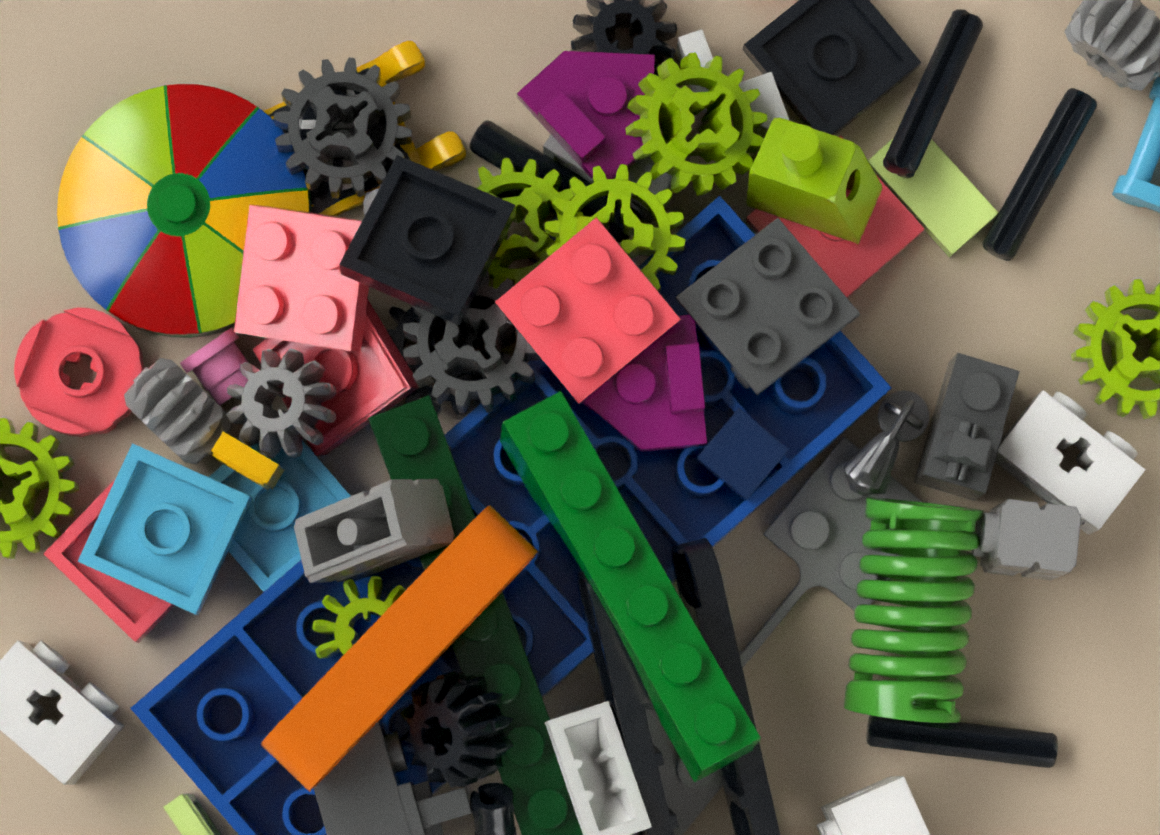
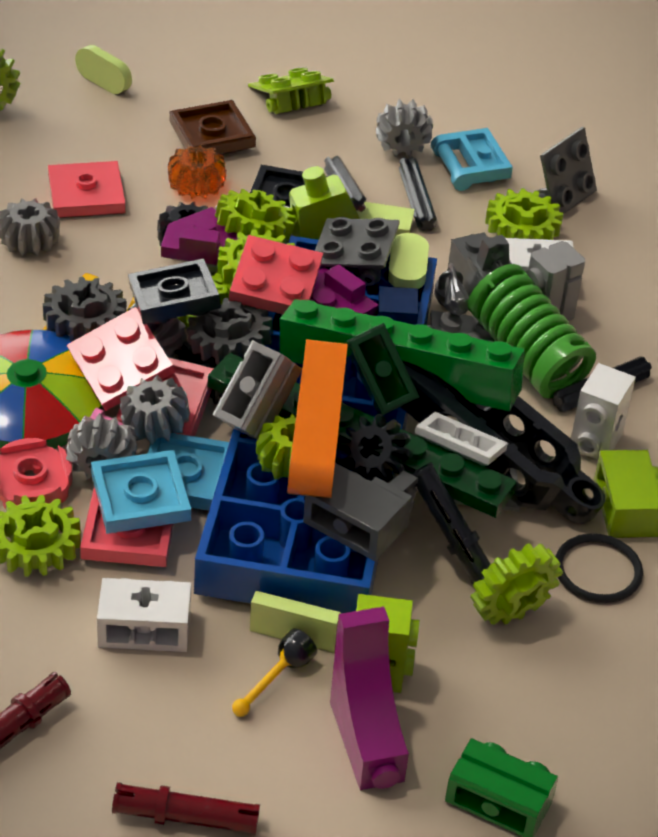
camera: 40 degrees left, 40 degrees down
(247, 461) = (158, 436): yellow tile -> none
(566, 603) = (381, 369): none -> dark green slope
(832, 378) = (408, 261): none -> yellowish green tile

